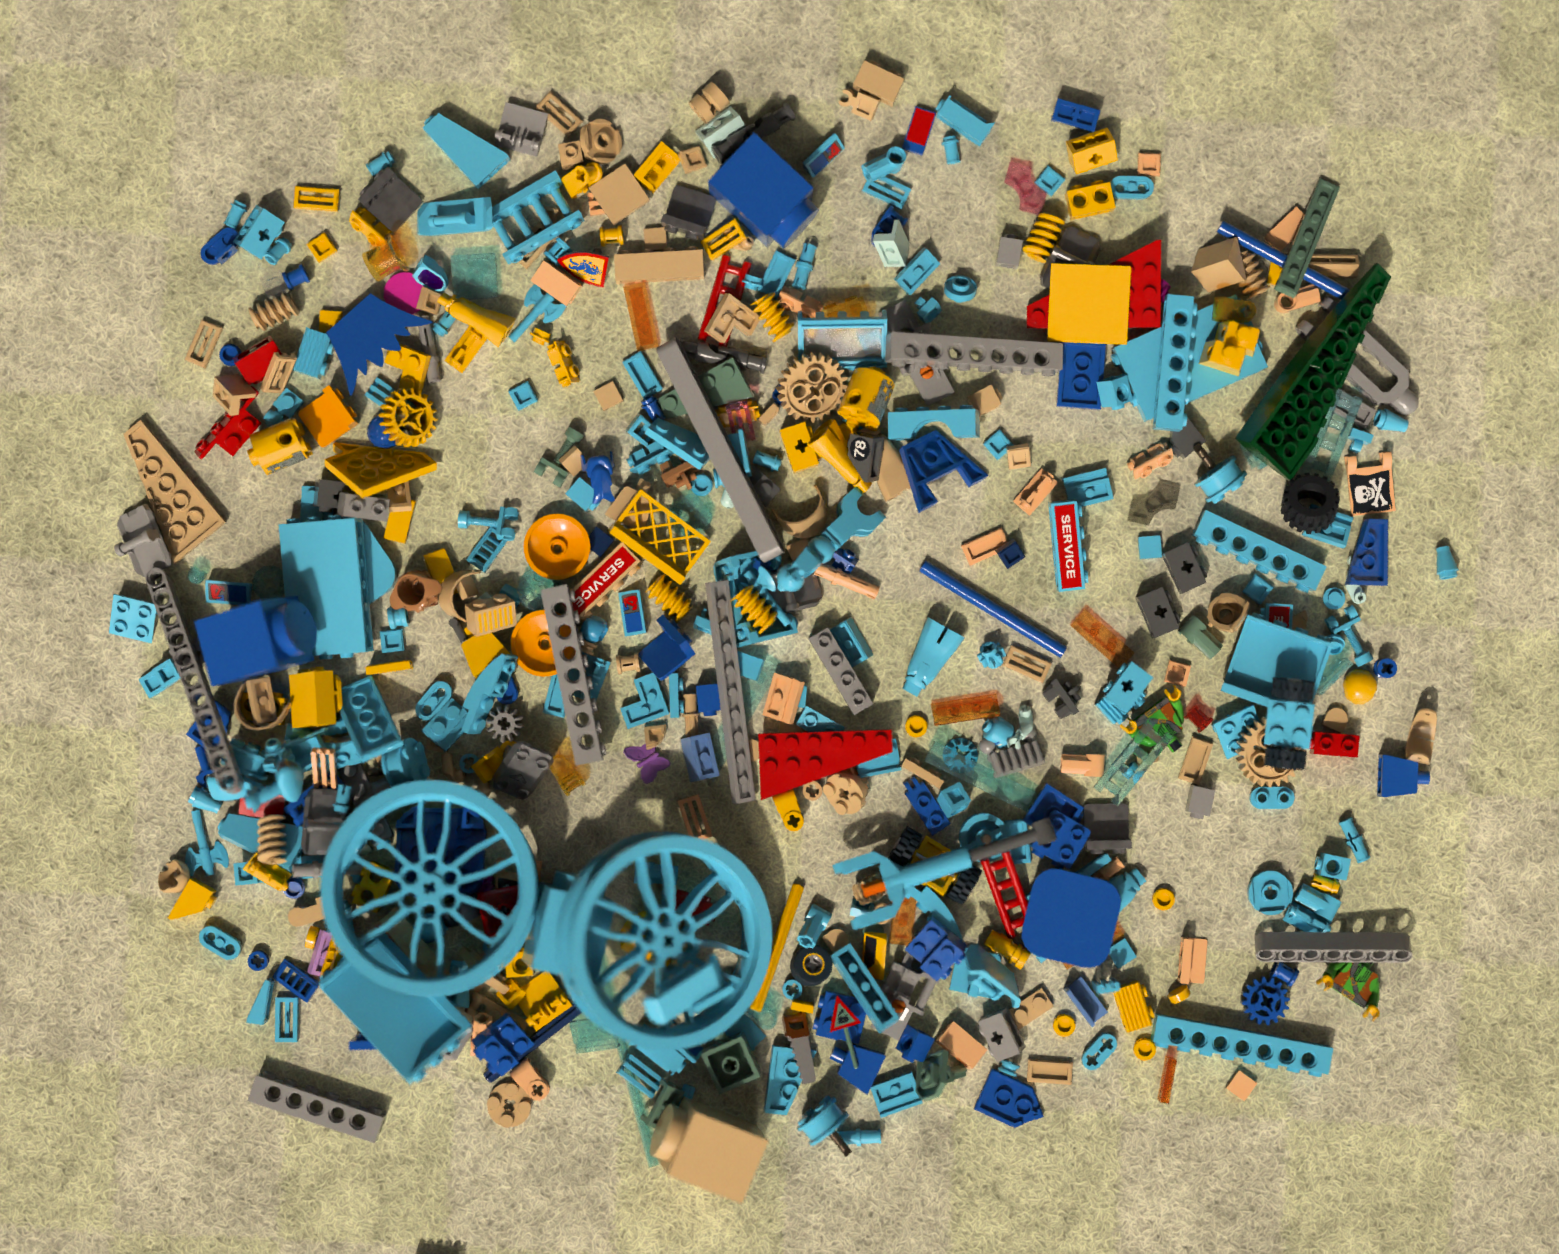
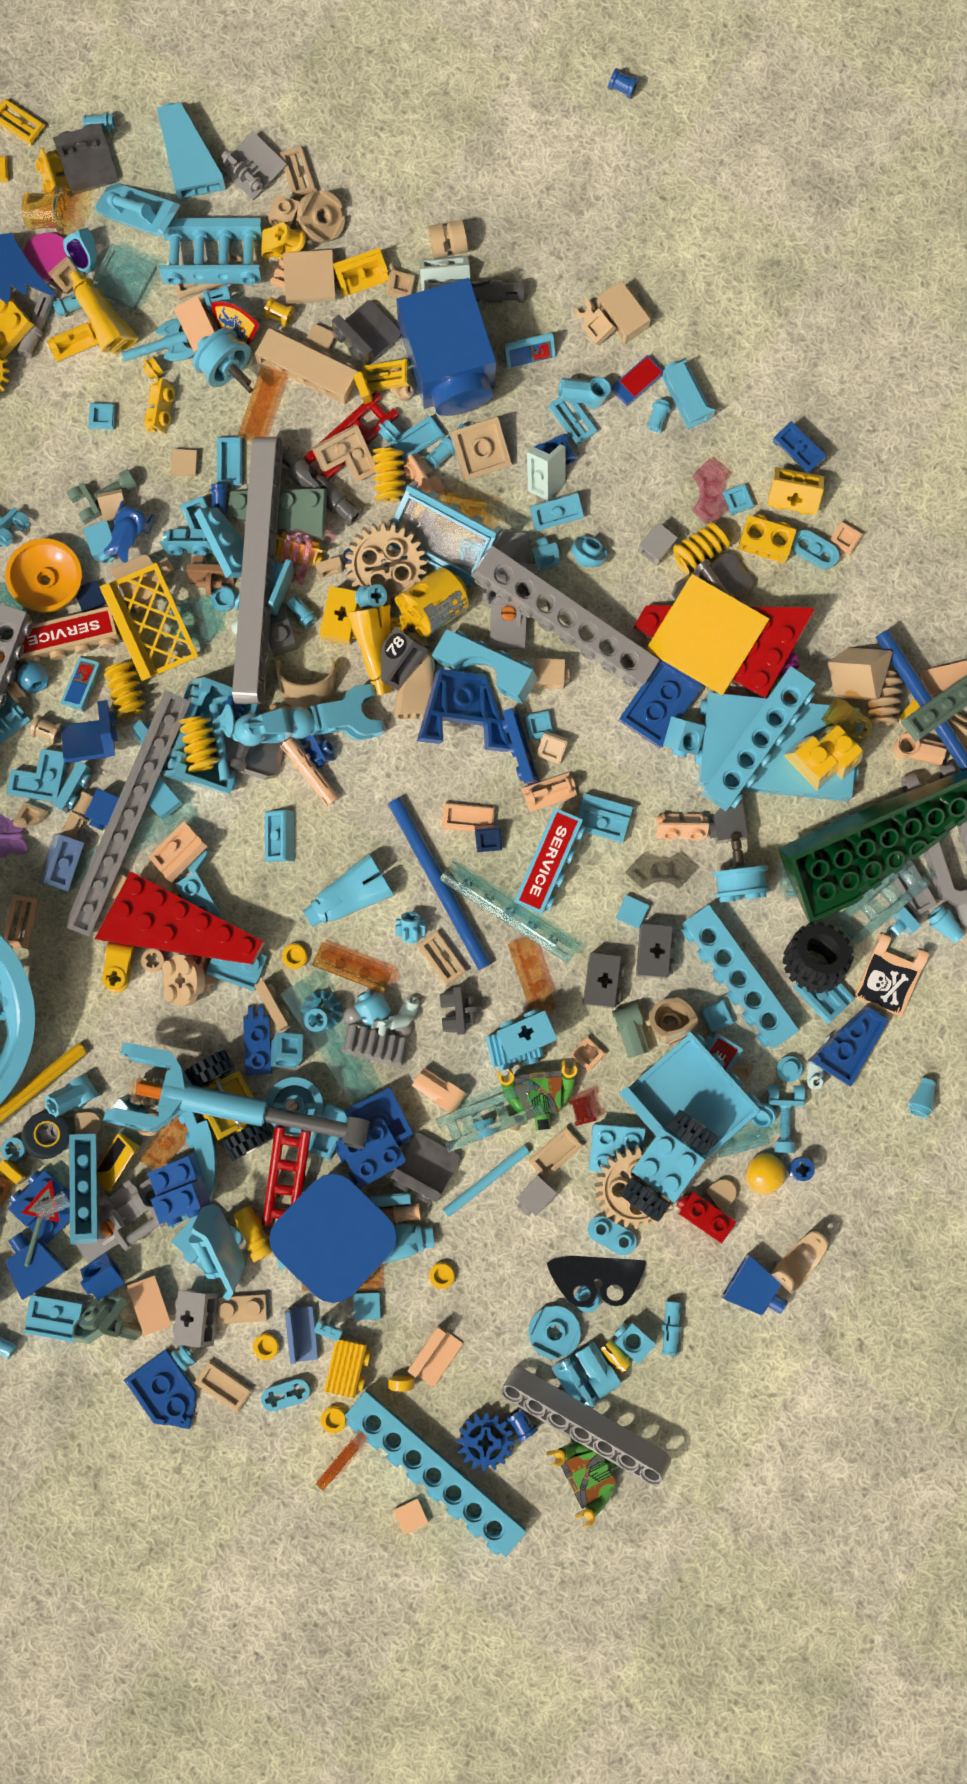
camera: 30 degrees right, 5 degrees down
(593, 299) = (223, 358): none -> medium azure wheel
(712, 258) = (363, 387): none -> yellow tile
(818, 420) = (371, 596): none -> medium azure bush
(831, 255) = (480, 448): none -> tan plate
(840, 671) = (250, 857): light grey brick -> none
(849, 1015) = (51, 1206): none -> clear pin
(959, 759) = (316, 1028): none -> medium azure bush
(994, 470) = (519, 747): none -> blue plate
(1059, 601) = (510, 912): none -> clear light blue tile
(1162, 794) = (485, 1181): none -> medium azure bar
(1264, 836) = (577, 1271): none -> black piece
(1287, 854) = (579, 1296): none -> medium azure plate

